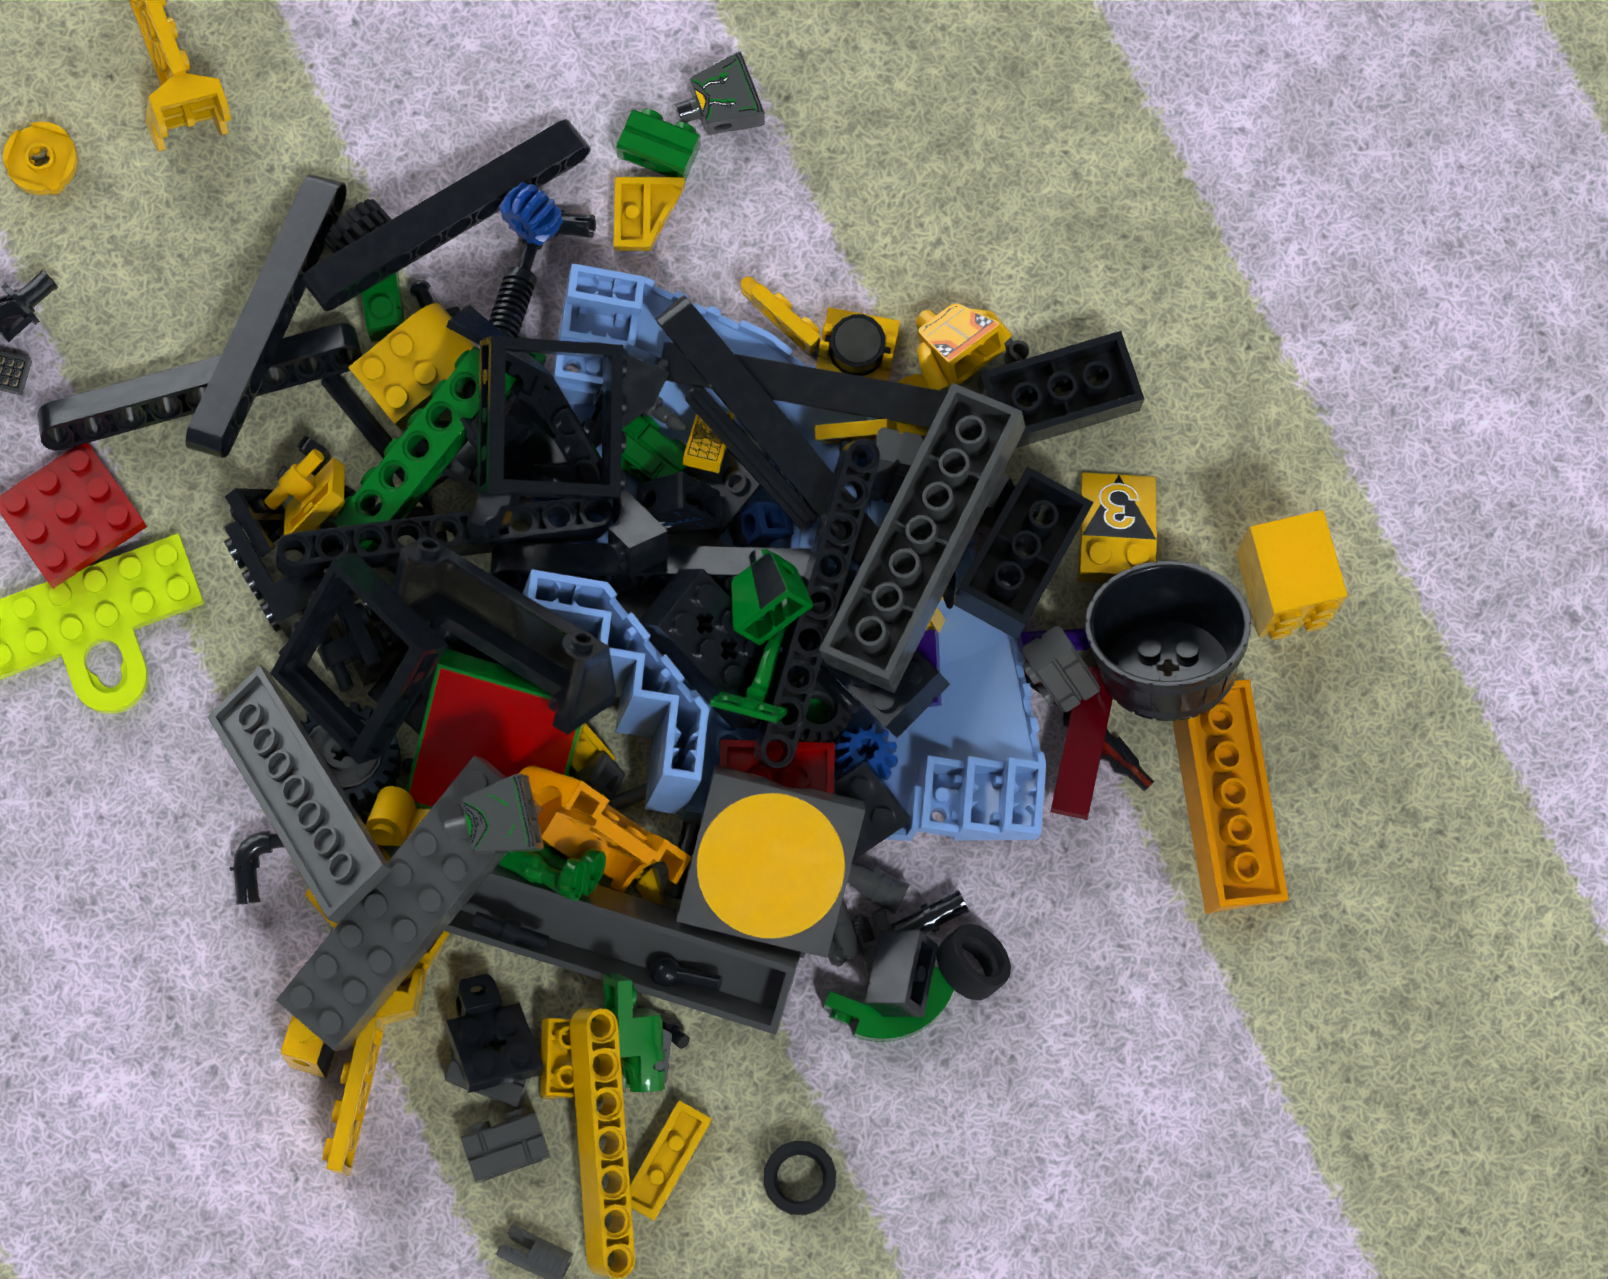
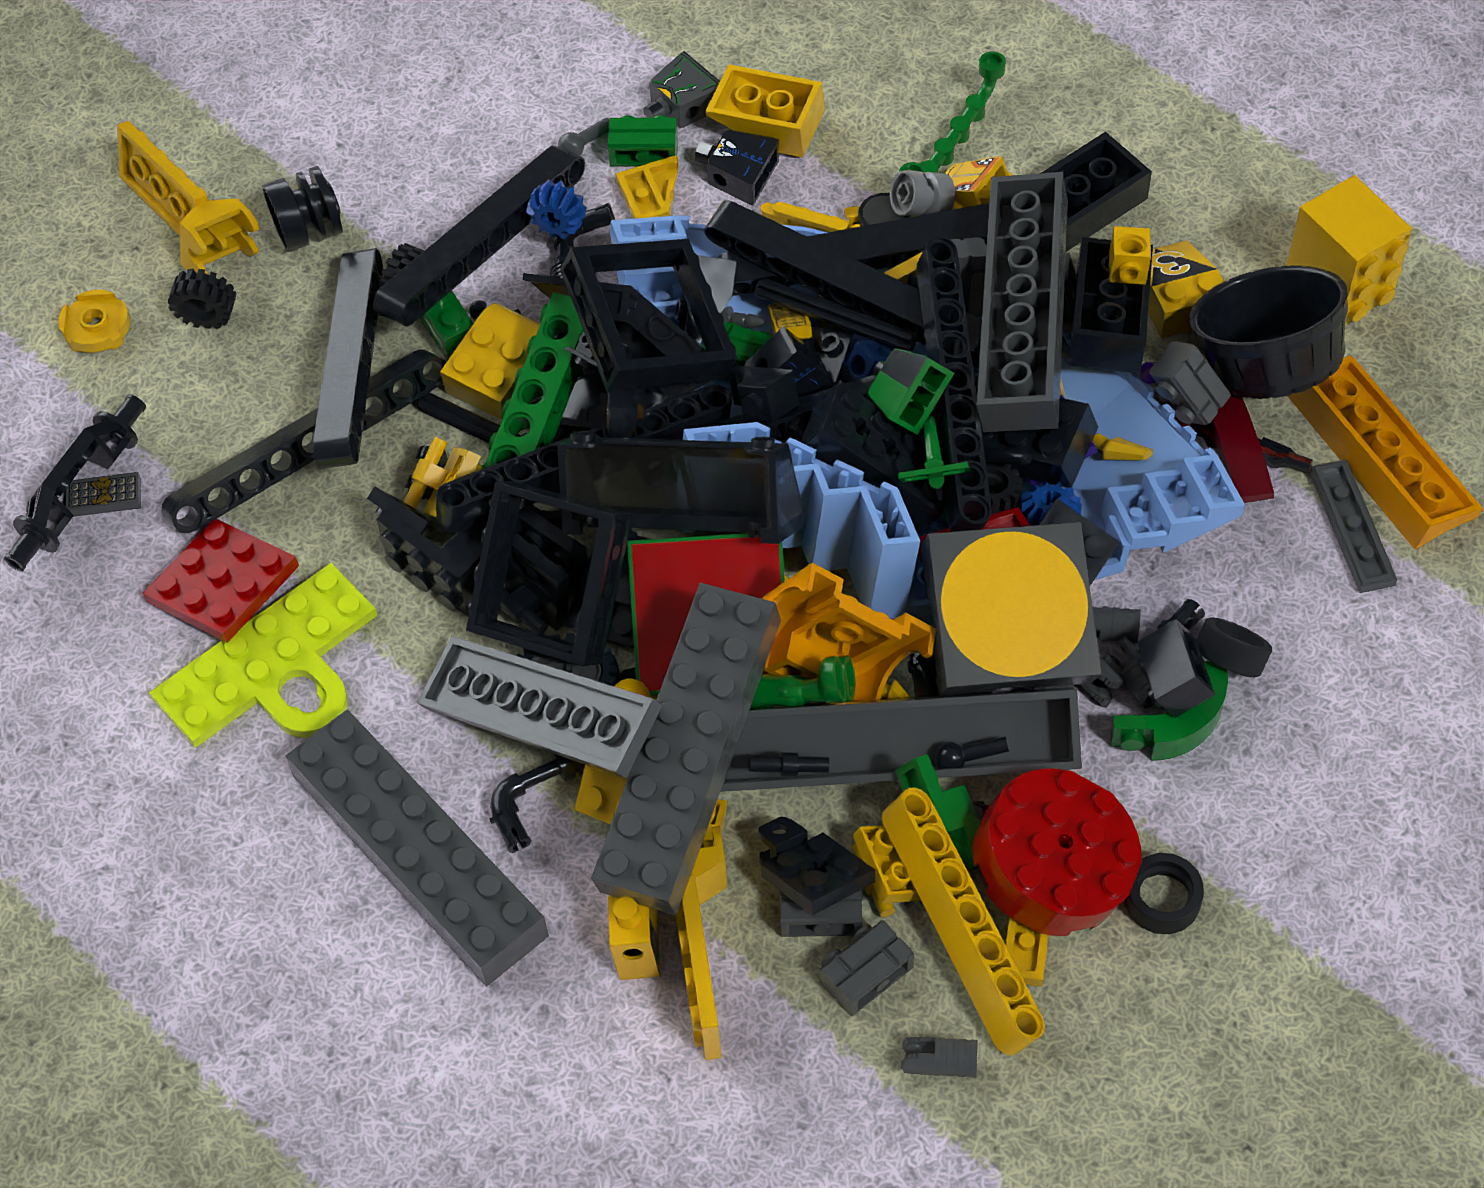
camera: 15 degrees left, 20 degrees down
(149, 180) = (202, 299): none -> black tyre
(153, 870) = (418, 847): none -> dark grey brick
(283, 107) = (302, 208): none -> black wheel
(498, 818) = (749, 615): dark grey torso -> none
(587, 119) = (575, 142): none -> dark grey bar
(745, 211) = (740, 163): none -> black torso
(751, 1115) = (1057, 851): none -> red piece
(797, 157) = (769, 106): none -> yellow slope
(899, 341) = (921, 193): none -> light grey wheel
(905, 306) = (991, 68): none -> green bar
(964, 711) = (1121, 449): none -> yellow bar
(1062, 506) = (1129, 255): none -> yellow brick
(1157, 867) = (1353, 526): none -> dark grey tile

